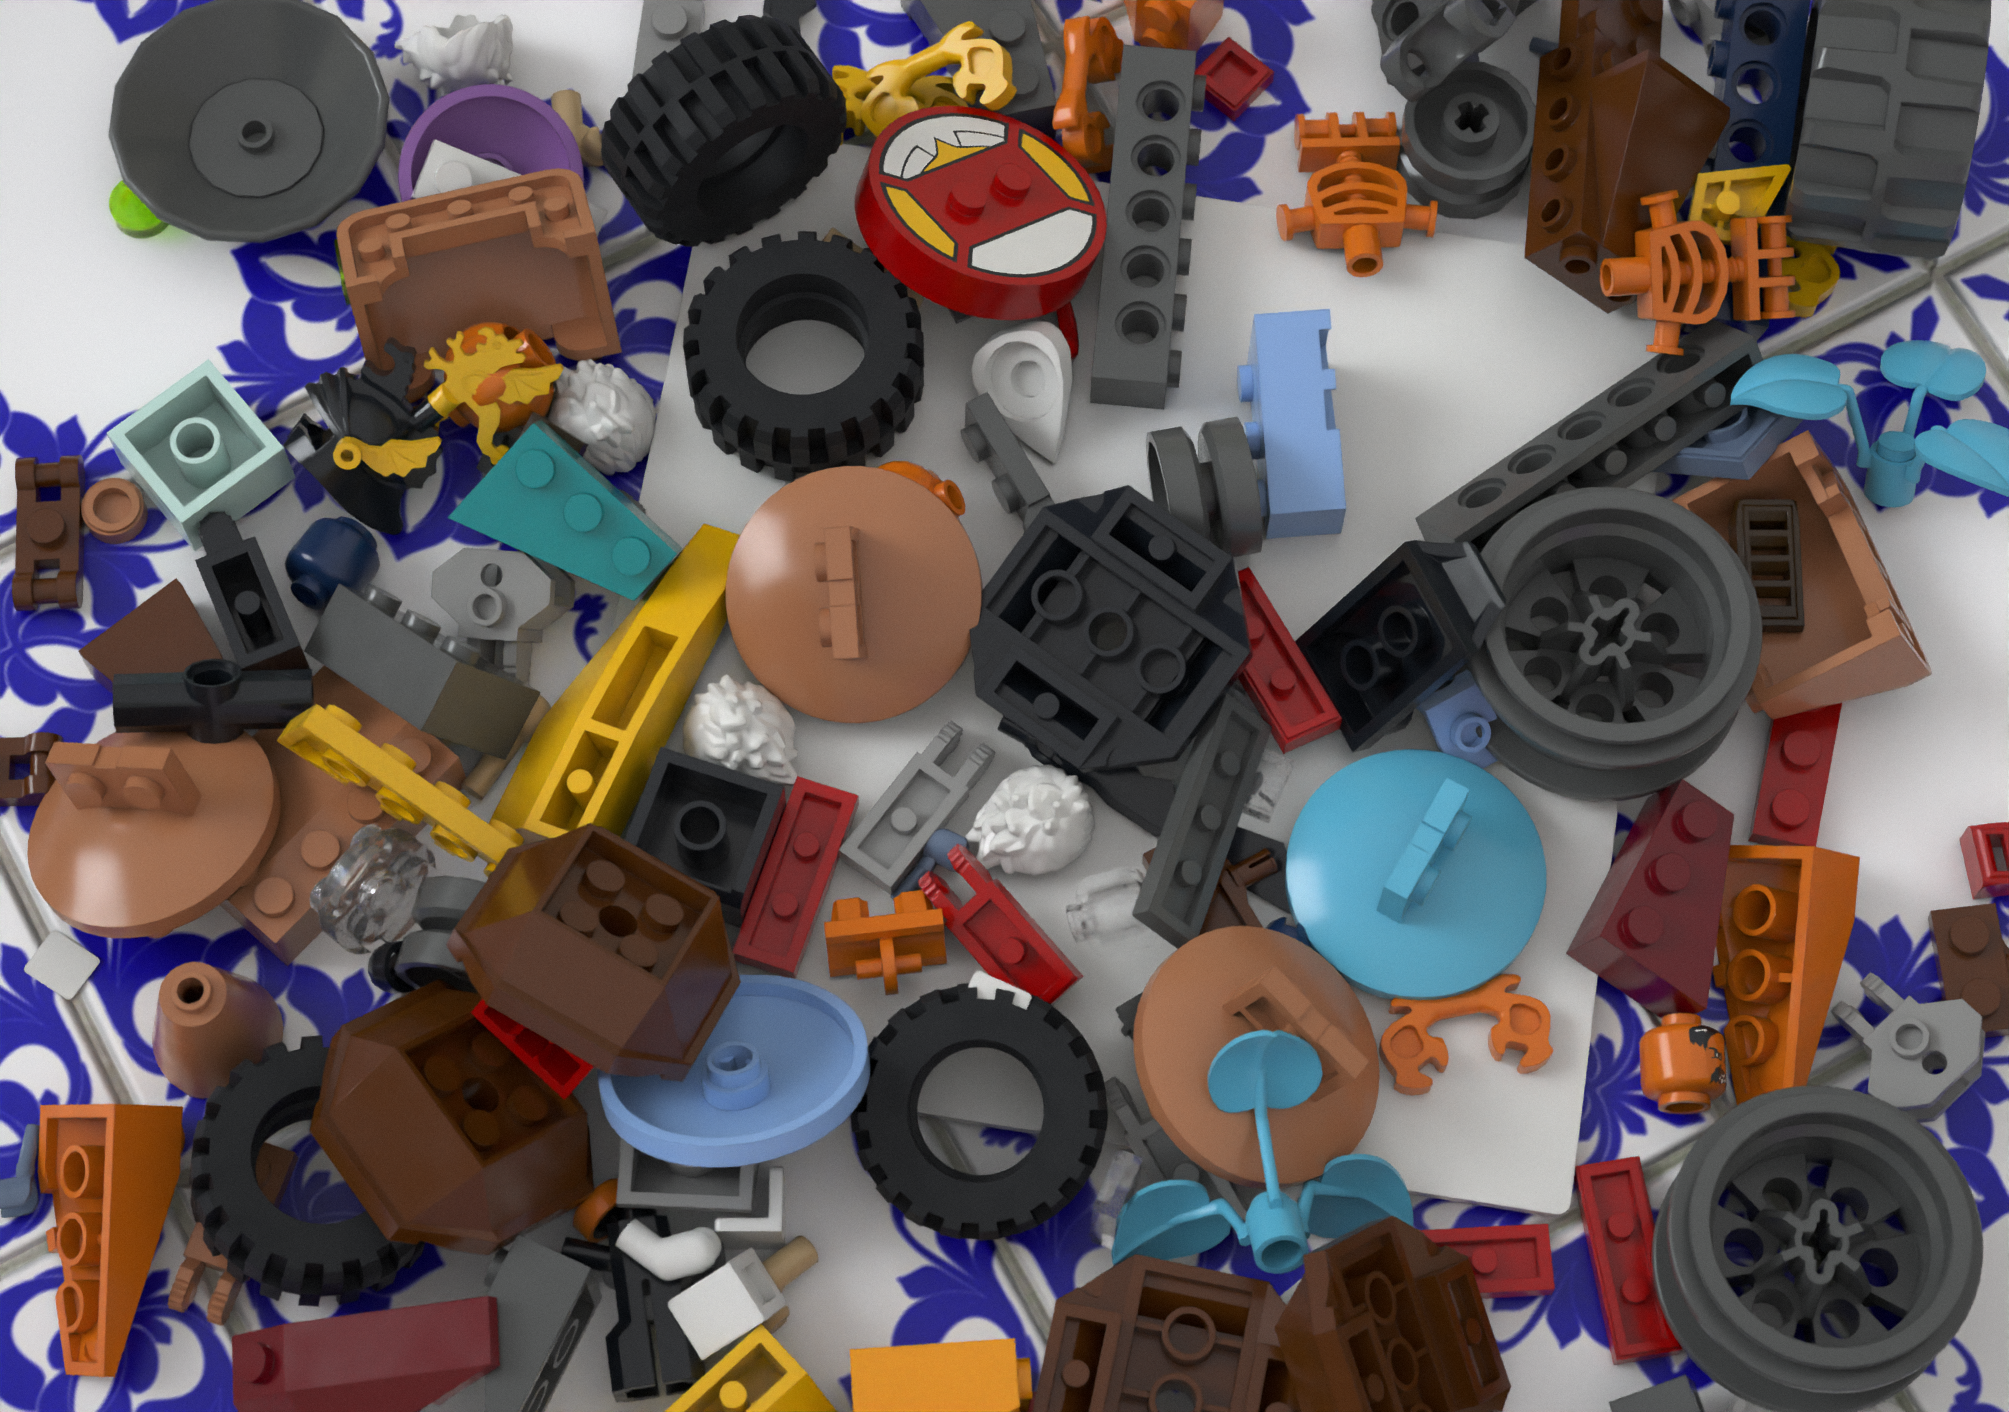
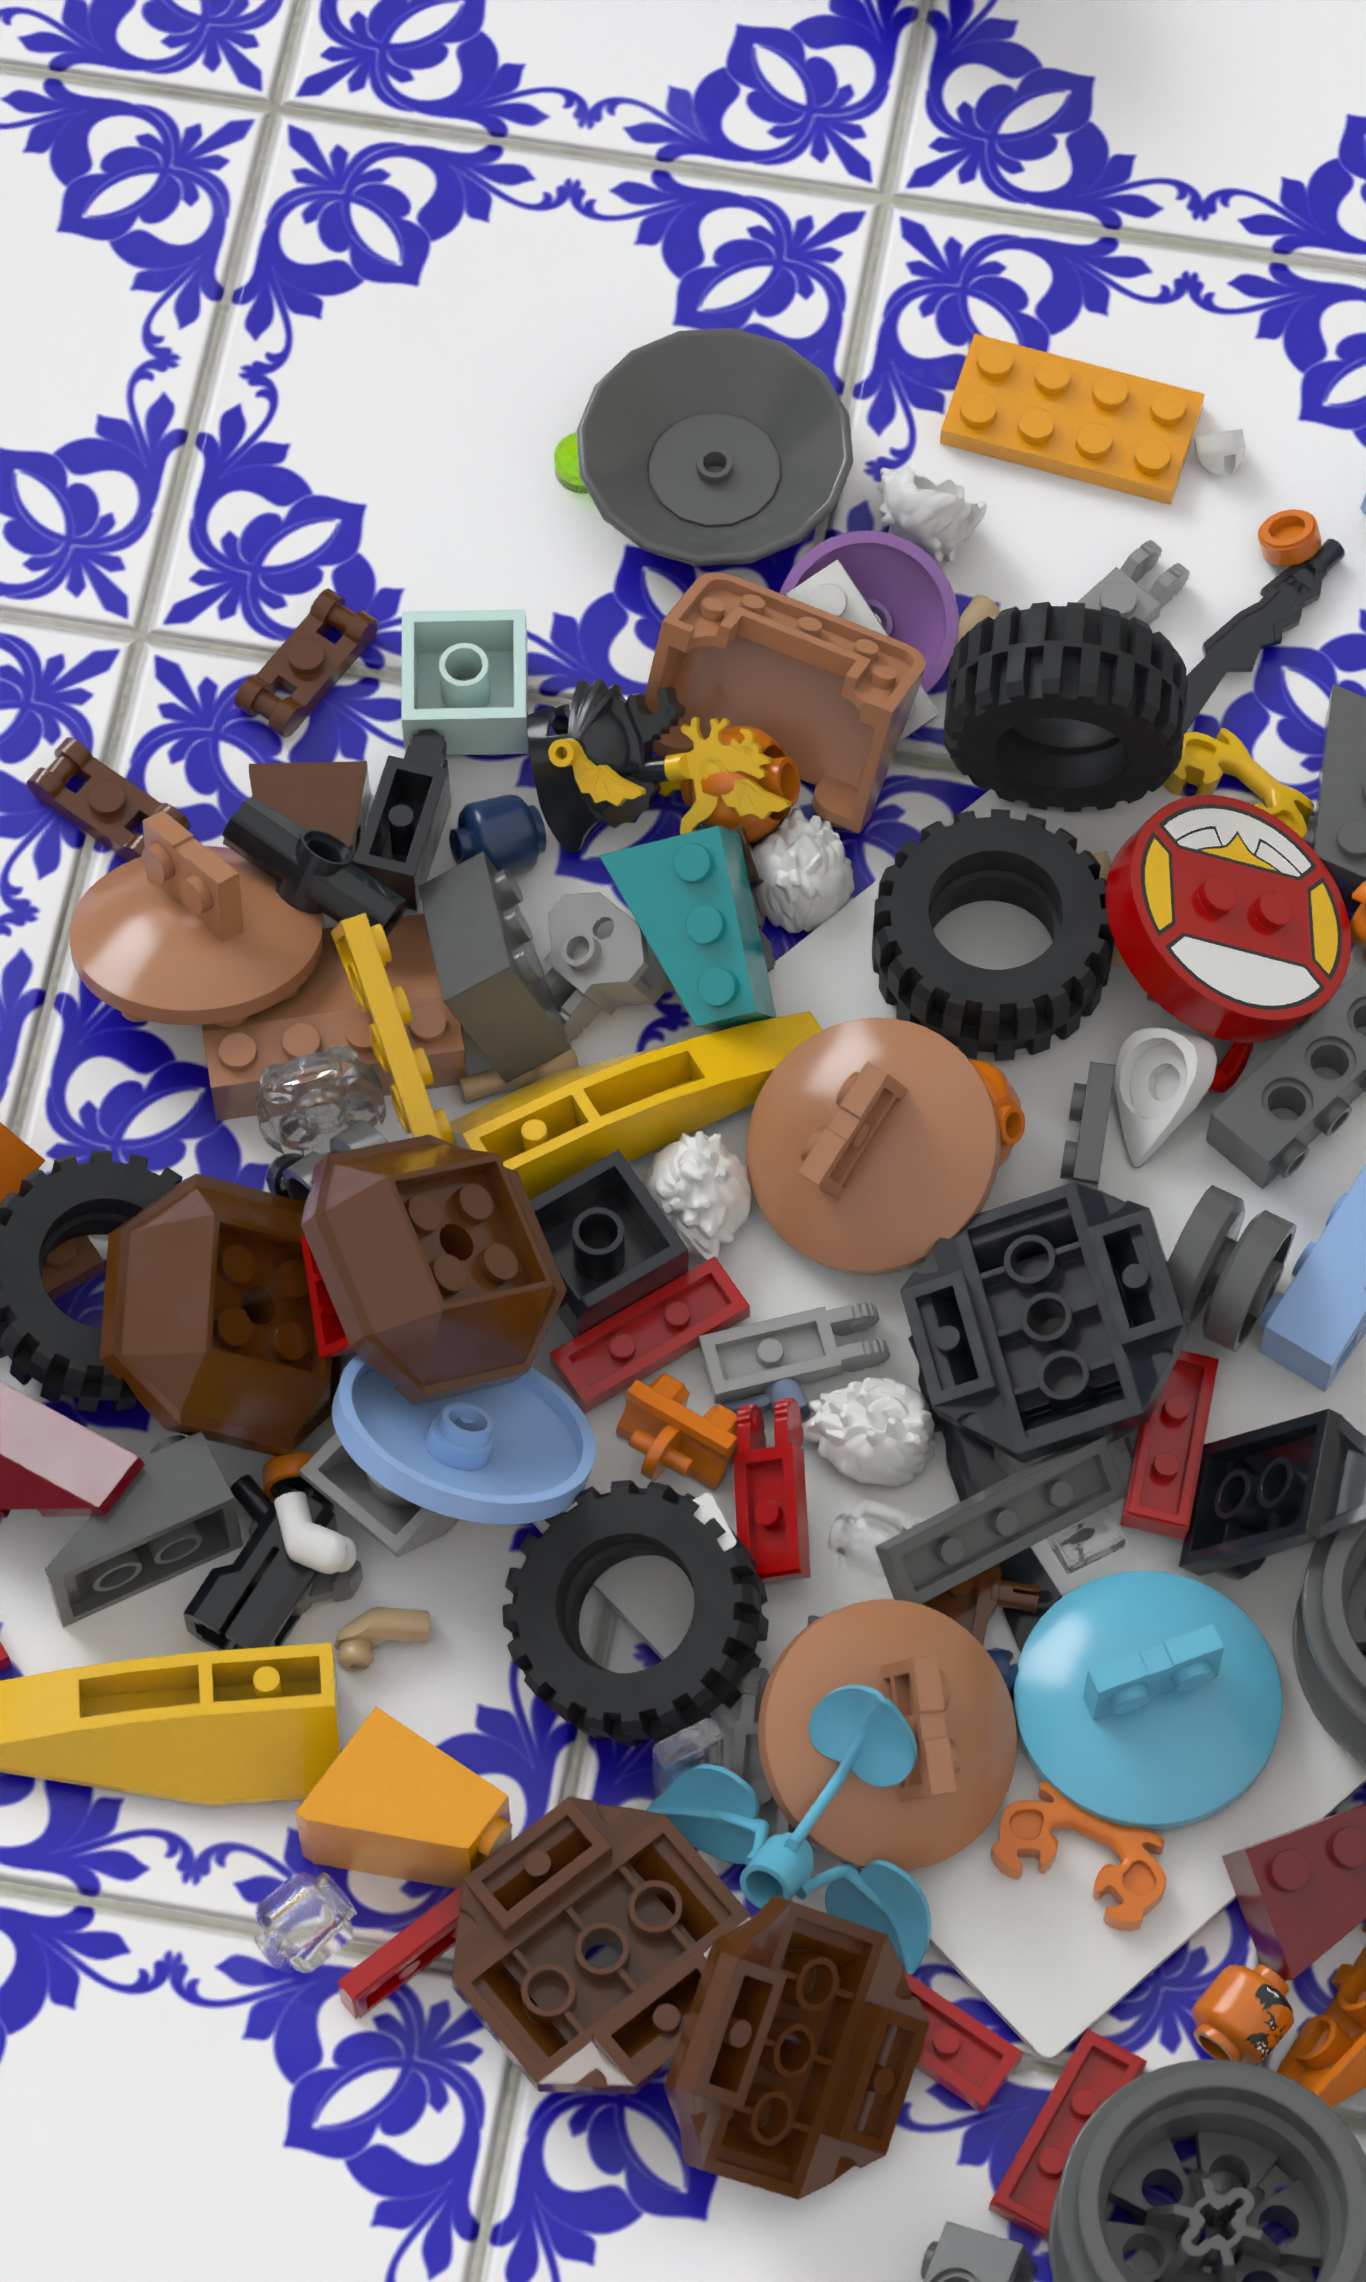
camera: 40 degrees right, 5 degrees down
(61, 965) = (51, 996): white sticker -> none
(114, 510) = (370, 681): nougat tile -> none
(209, 1025) = (120, 1109): nougat cone -> none
(727, 1303) = (323, 1611): white panel -> none
(767, 1222) = (410, 1577): white panel -> none
(983, 67) = (1330, 807): yellow helmet -> none
(1454, 718) = (1280, 1601): light blue bracket -> none

